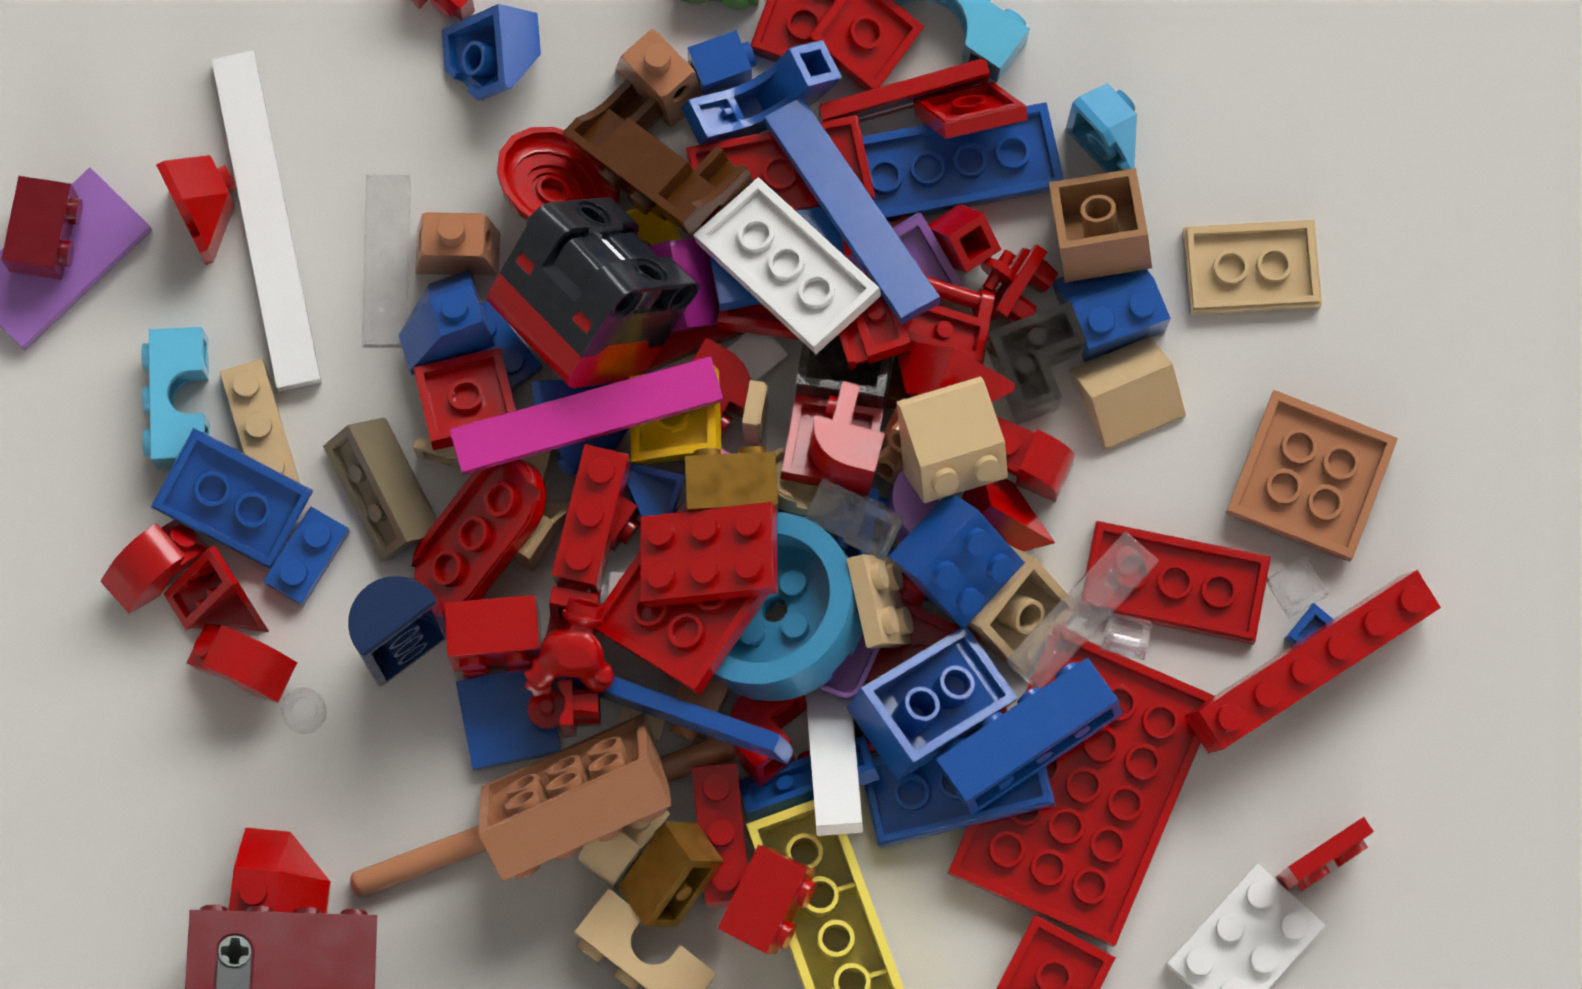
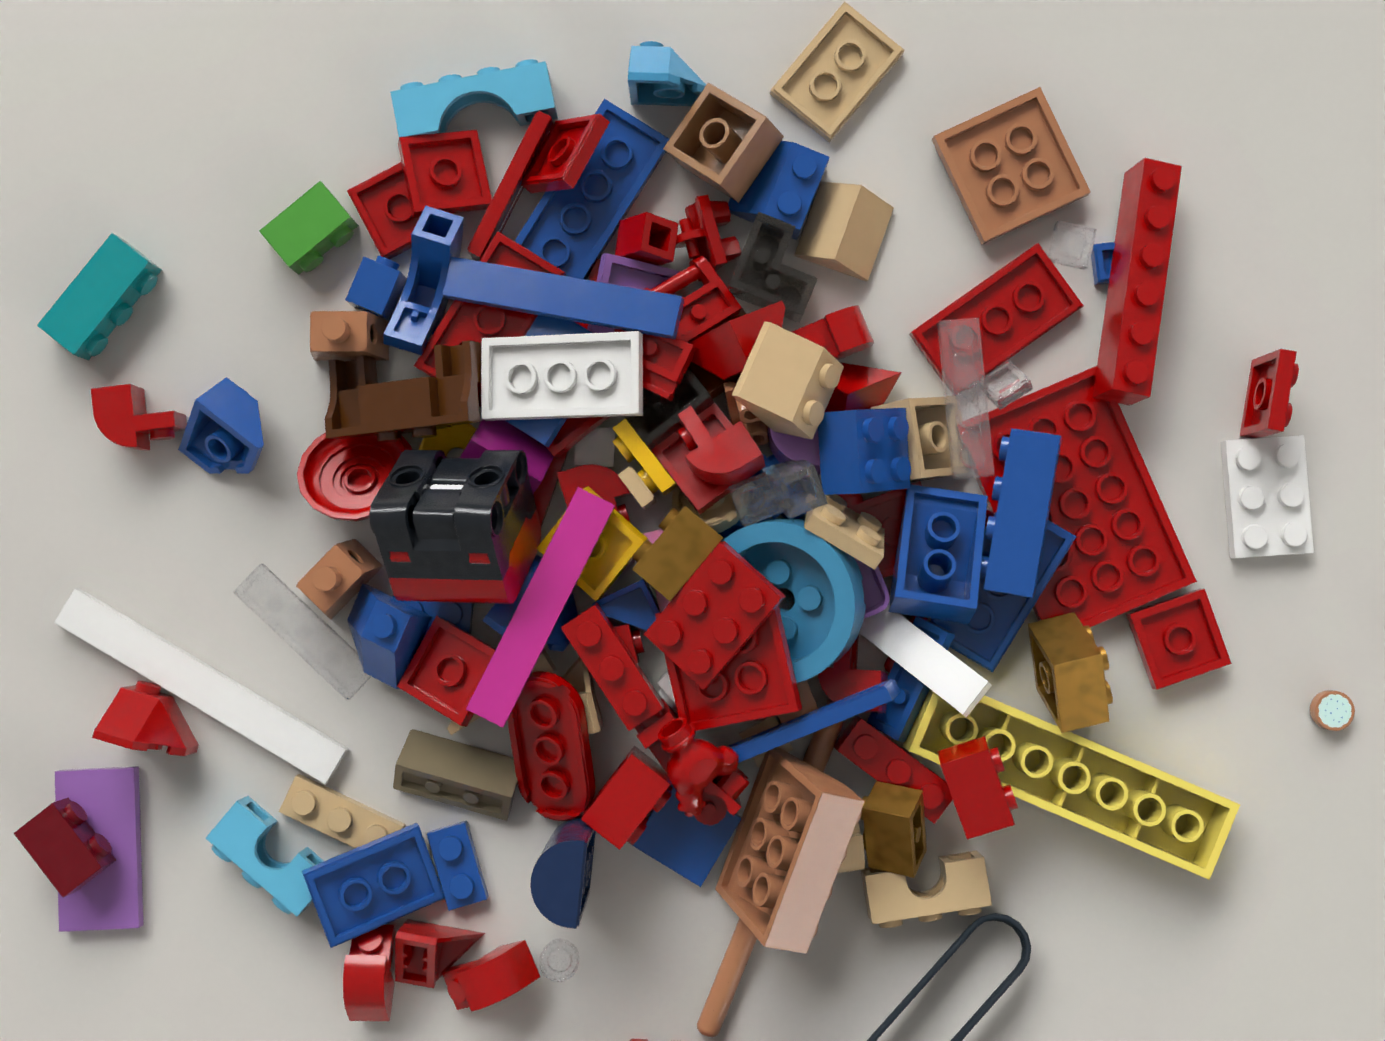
camera: 45 degrees left, 10 degrees up
(778, 410) = (632, 448): none -> yellow plate
(937, 897) = (1070, 672): none -> pearl gold brick

